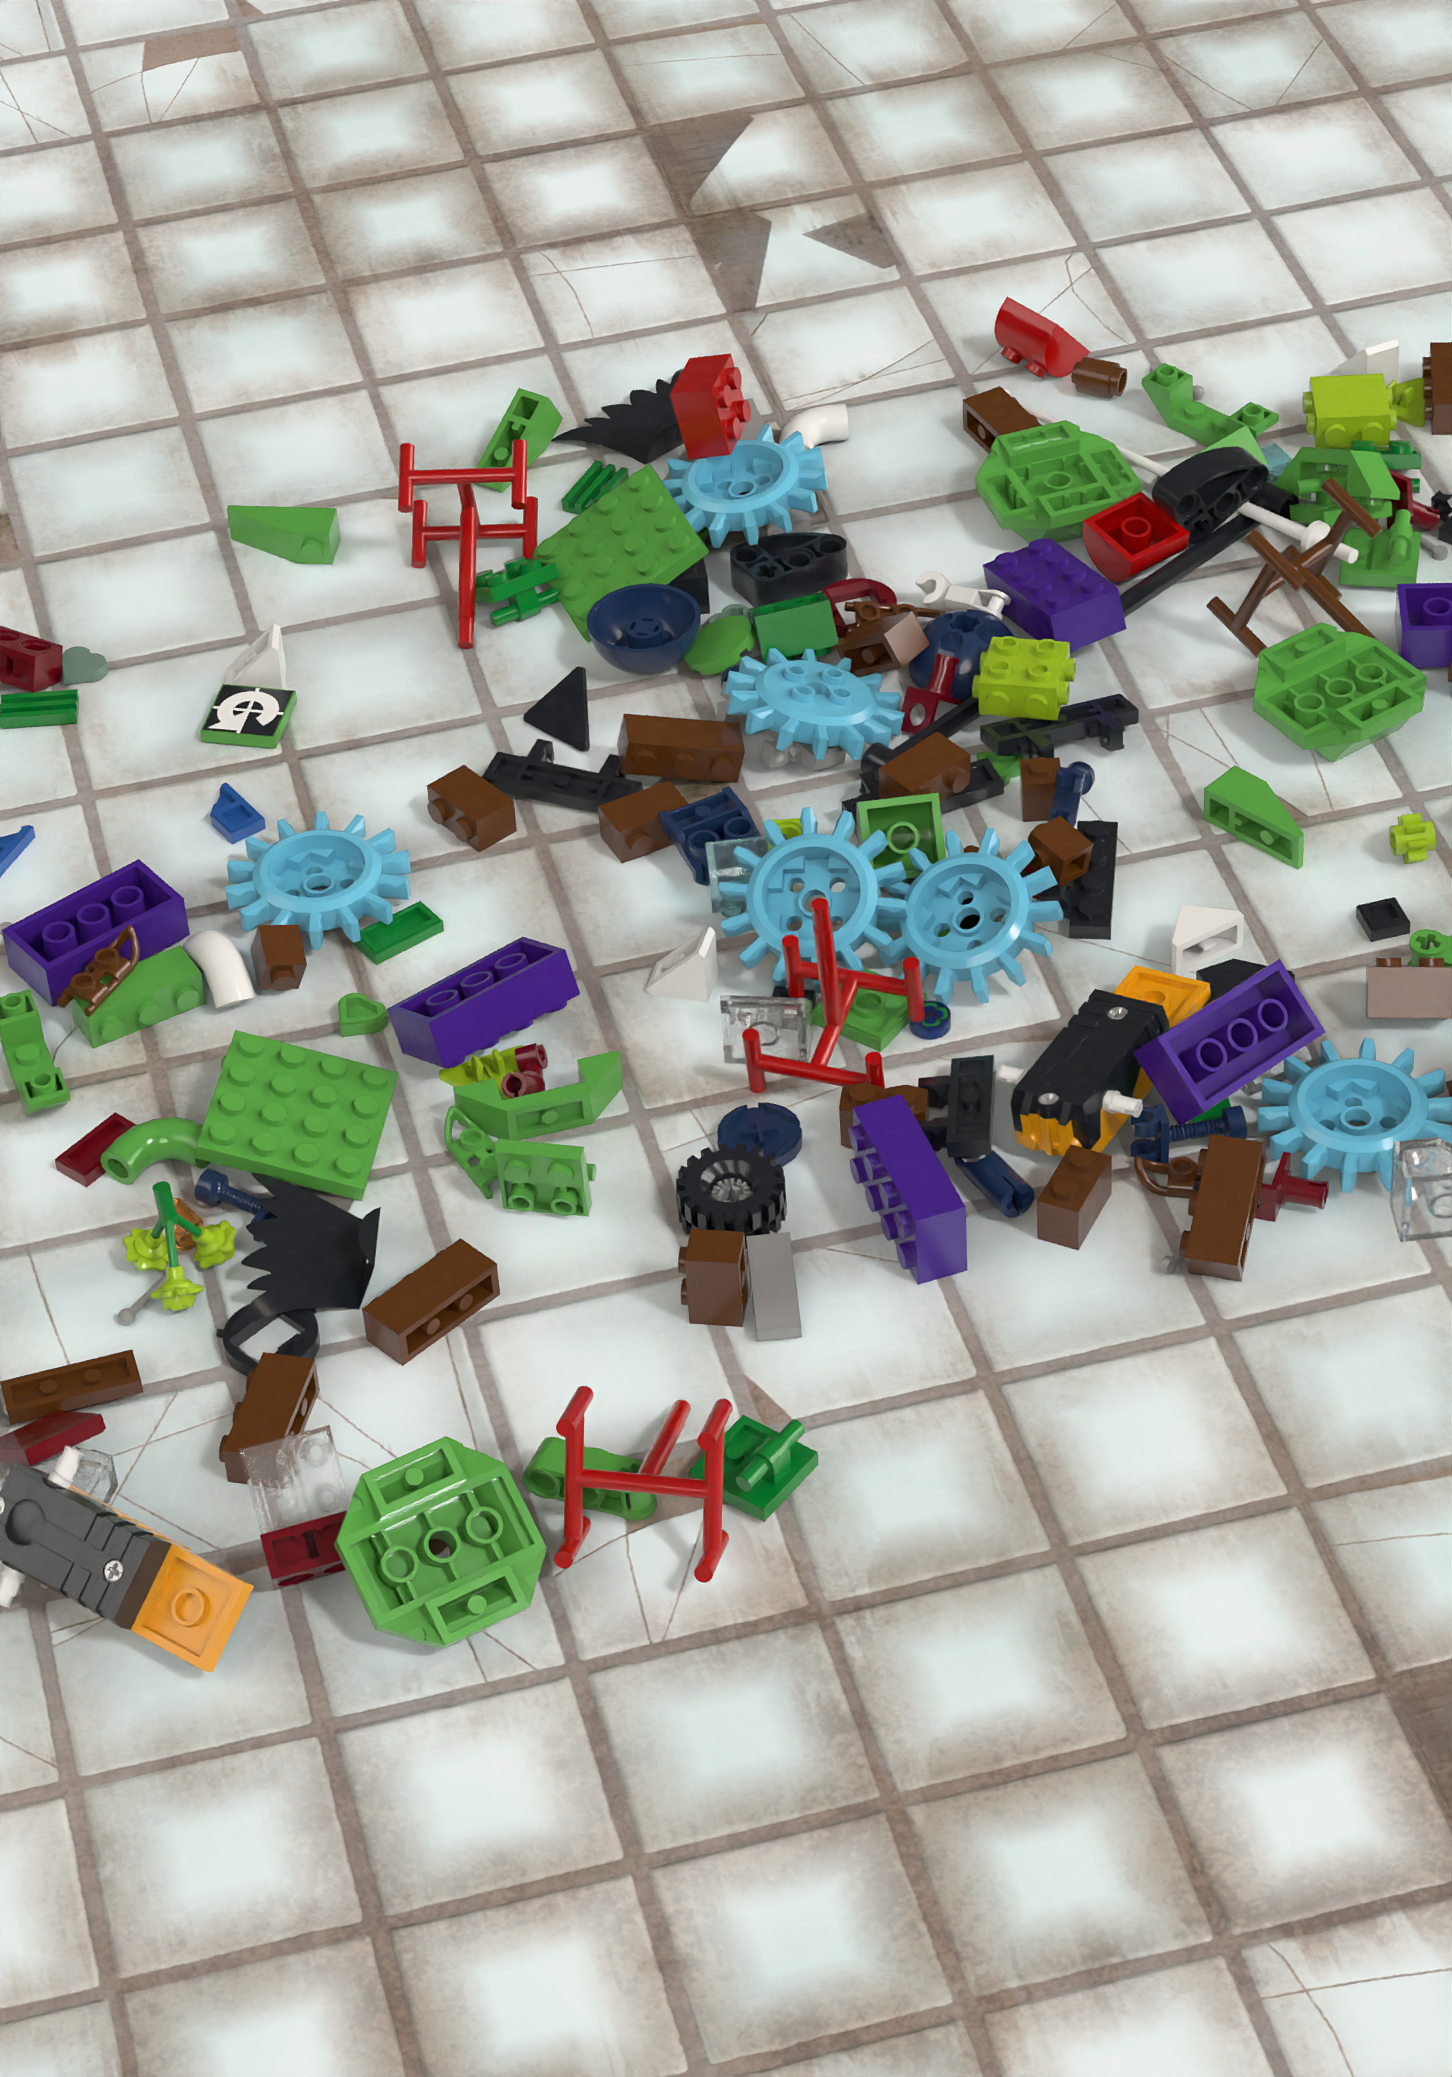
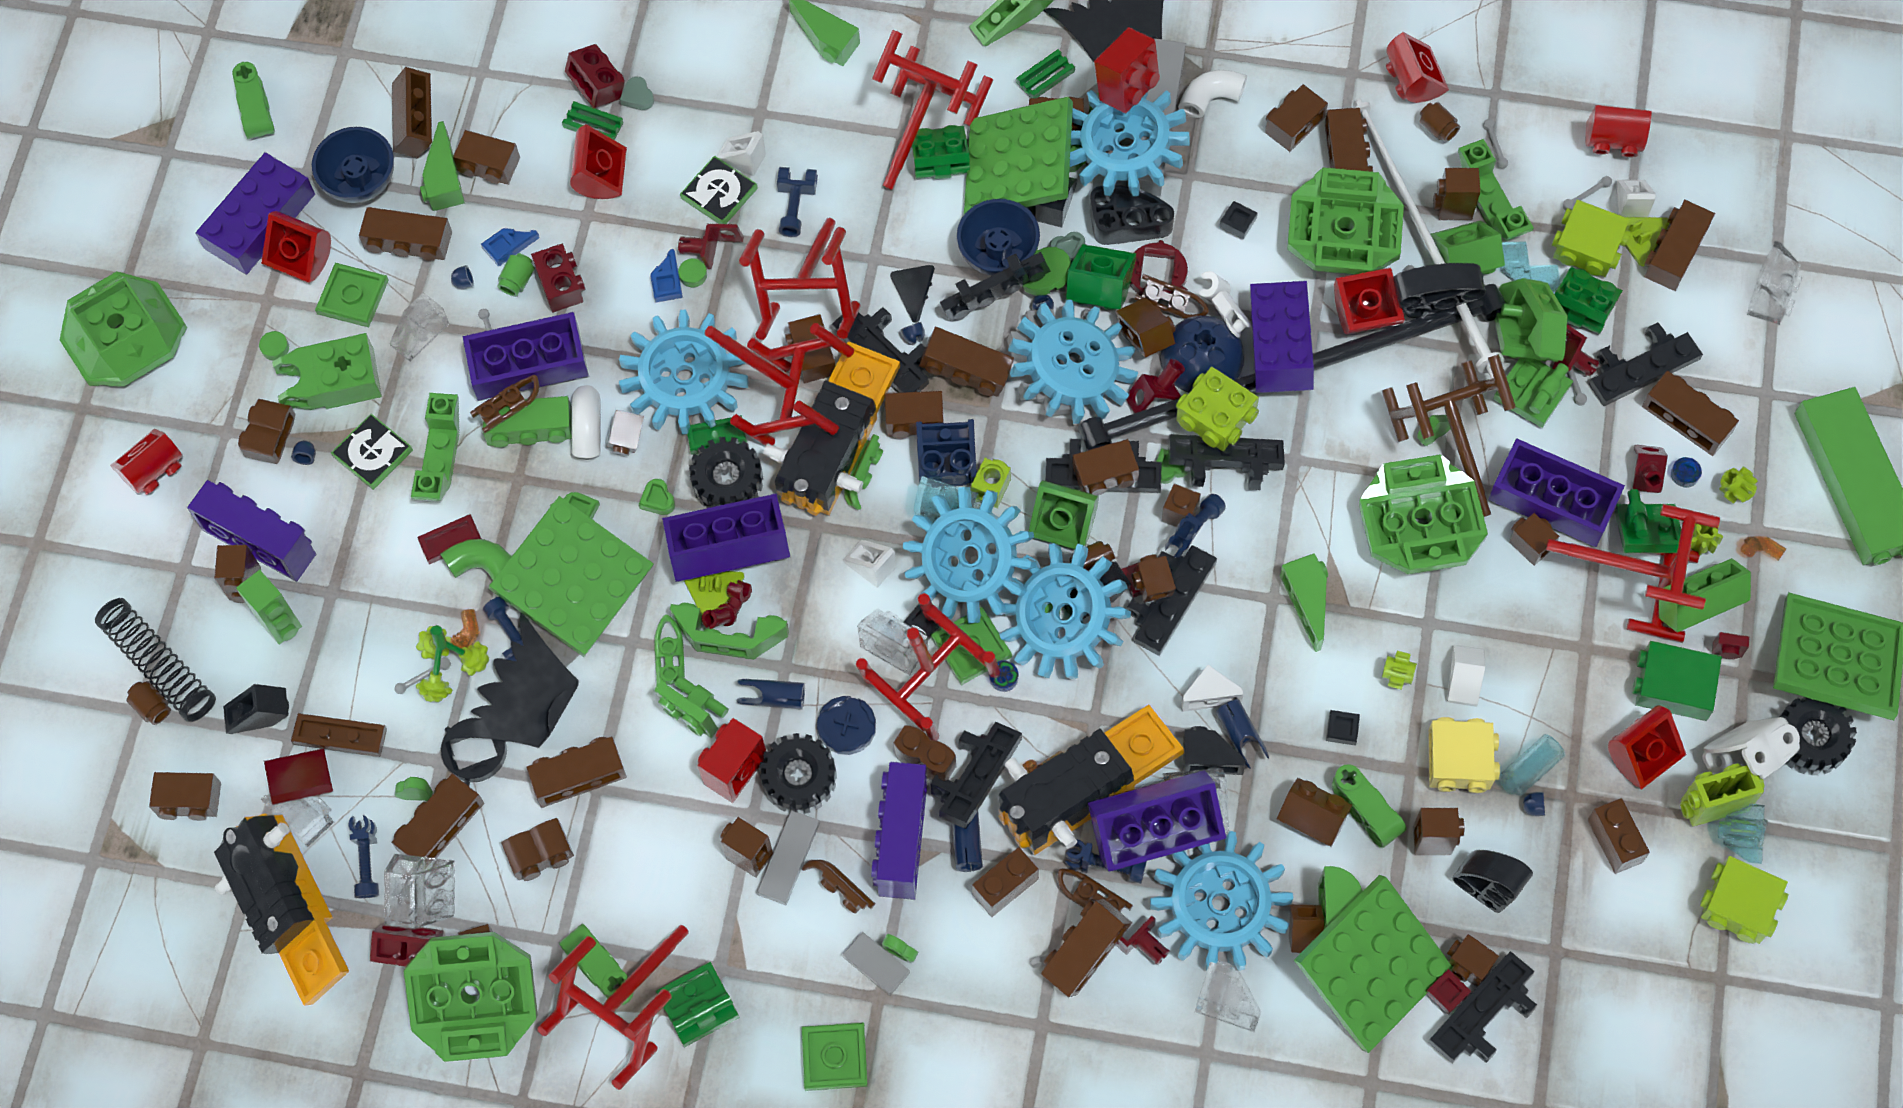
camera: 25 degrees right, 25 degrees up
(28, 871) = (515, 274): none -> bright green brick
(72, 734) = (597, 164): none -> red brick
(85, 850) = (555, 278): none -> dark red brick
(176, 1474) = (366, 887): none -> dark blue bar
(214, 1401) = (413, 789): none -> bright green tile
(266, 763) = (707, 245): none -> dark red bracket
(266, 797) = (692, 272): none -> bright green tile
(364, 710) = (790, 225): none -> dark blue bar
(427, 720) = (803, 281): none -> red piece
(429, 1396) = (537, 850): none -> reddish brown brick
(434, 948) = (721, 459): none -> black bush
(465, 805) = (776, 356): none -> red piece
(557, 863) = (820, 462): none -> piece
(591, 755) = (913, 332): none -> dark blue hinge
(620, 903) = (870, 454): none -> bright green piece
(637, 1203) = (731, 759): none -> red brick
(650, 1133) = (775, 693): none -> dark blue piece
(657, 682) = (988, 290): none -> black hinge
(887, 1285) = (834, 879): none -> reddish brown piece
(923, 531) = (1238, 219): none -> black plate
(927, 426) = (1295, 117): none -> reddish brown brick
(962, 1344) = (876, 964): none -> light grey tile
(972, 1454) = (834, 1056): none -> bright green tile
(982, 1311) = (899, 948): none -> bright green tile
(1169, 418) = (1457, 194): none -> reddish brown brick
(1253, 949) = (1239, 727): none -> dark blue piece
(1291, 621) = (1440, 427): none -> bright green tile
(1310, 311) = (1618, 129): none -> red brick
(1326, 370) = (1605, 182): none -> light grey hinge

